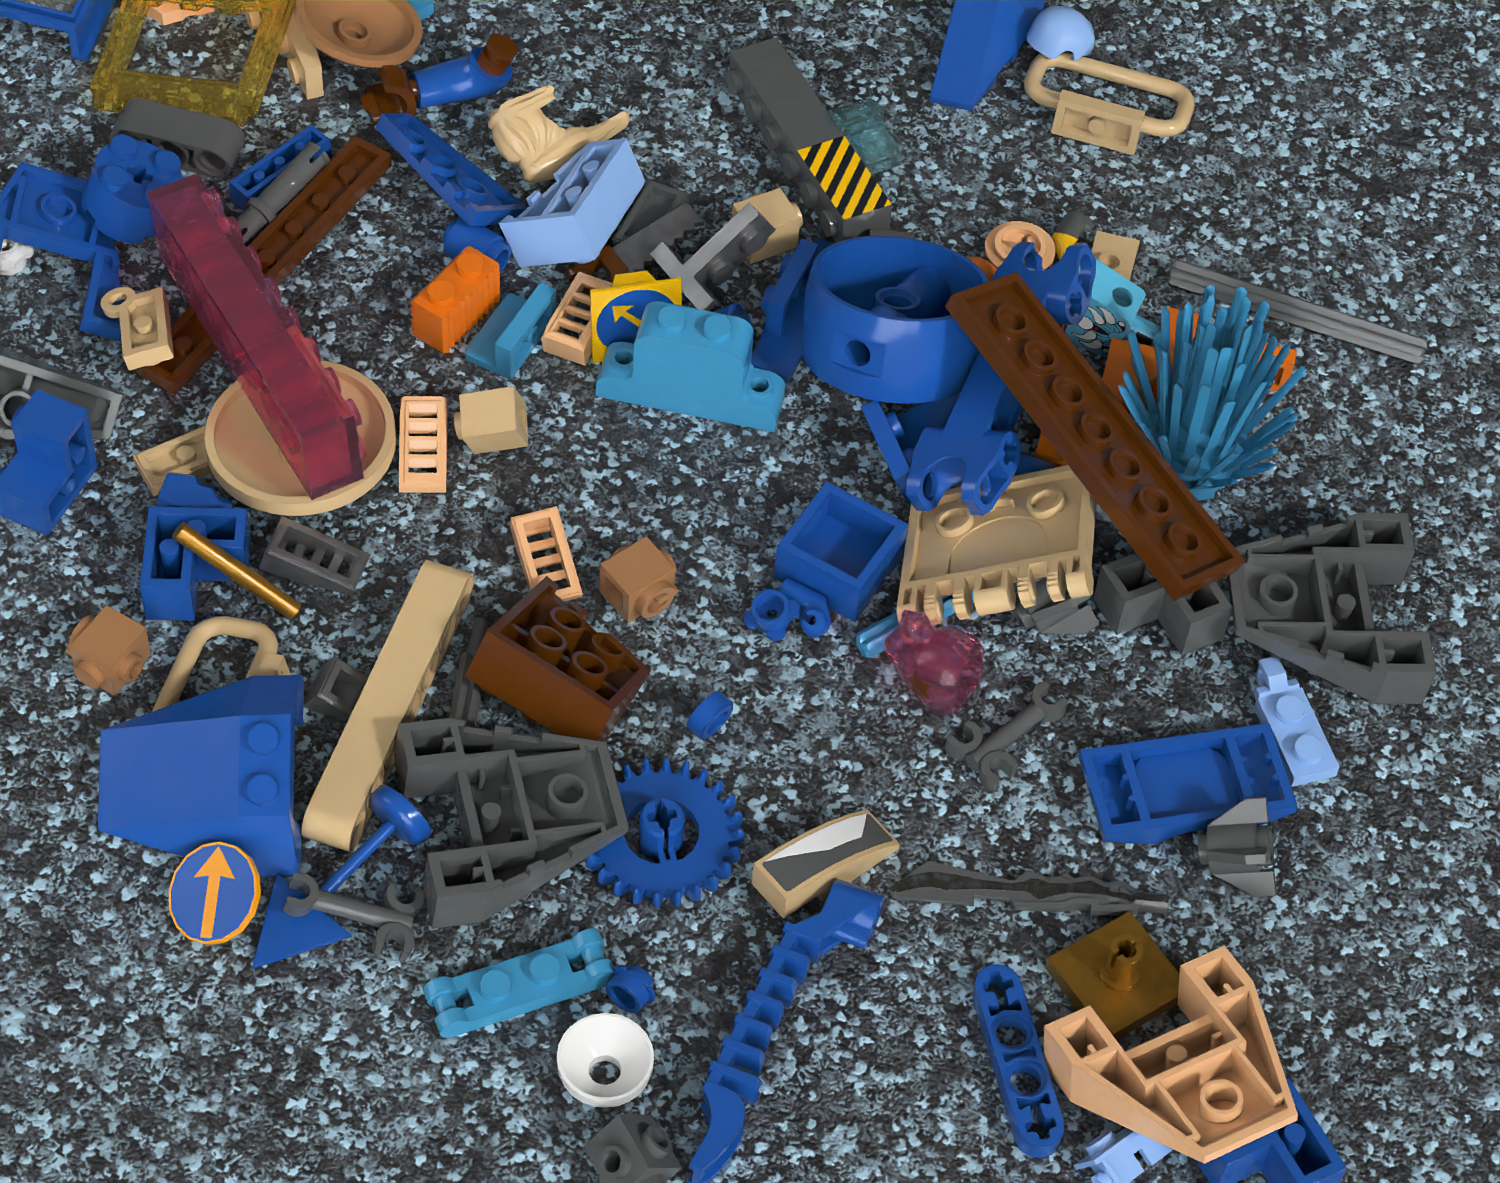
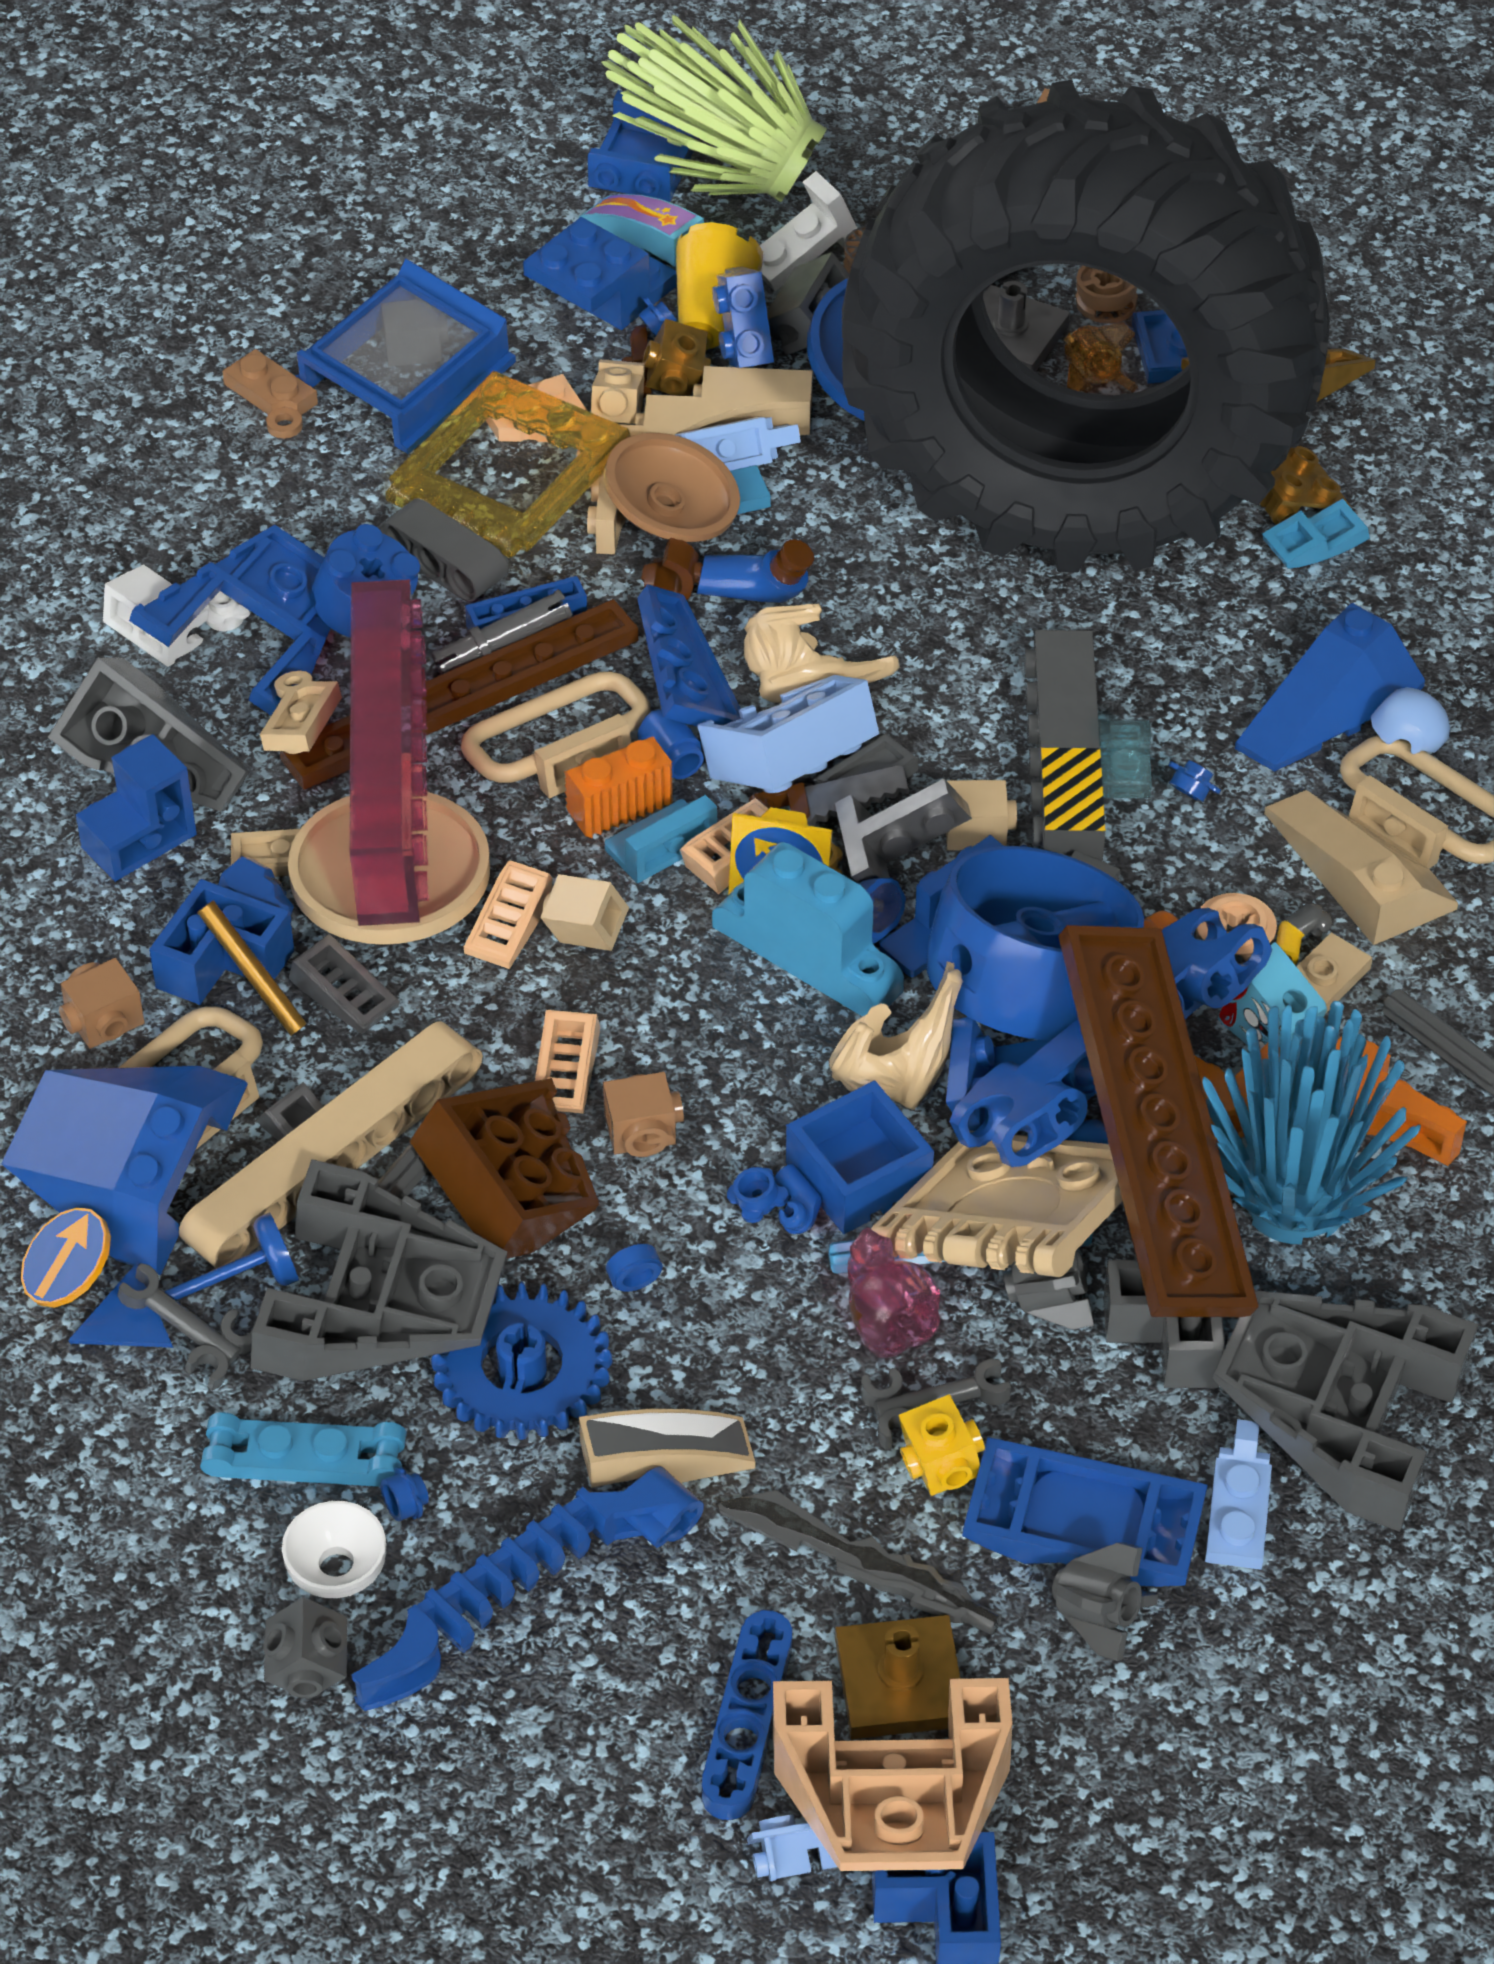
camera: 30 degrees right, 5 degrees down
(396, 288) = (555, 758): none -> tan bar
(834, 455) = (905, 1063): none -> tan hair
(919, 139) = (1192, 780): none -> blue plate
(1048, 772) = (940, 1445): none -> yellow brick
(1094, 174) = (1365, 874): none -> tan wedge

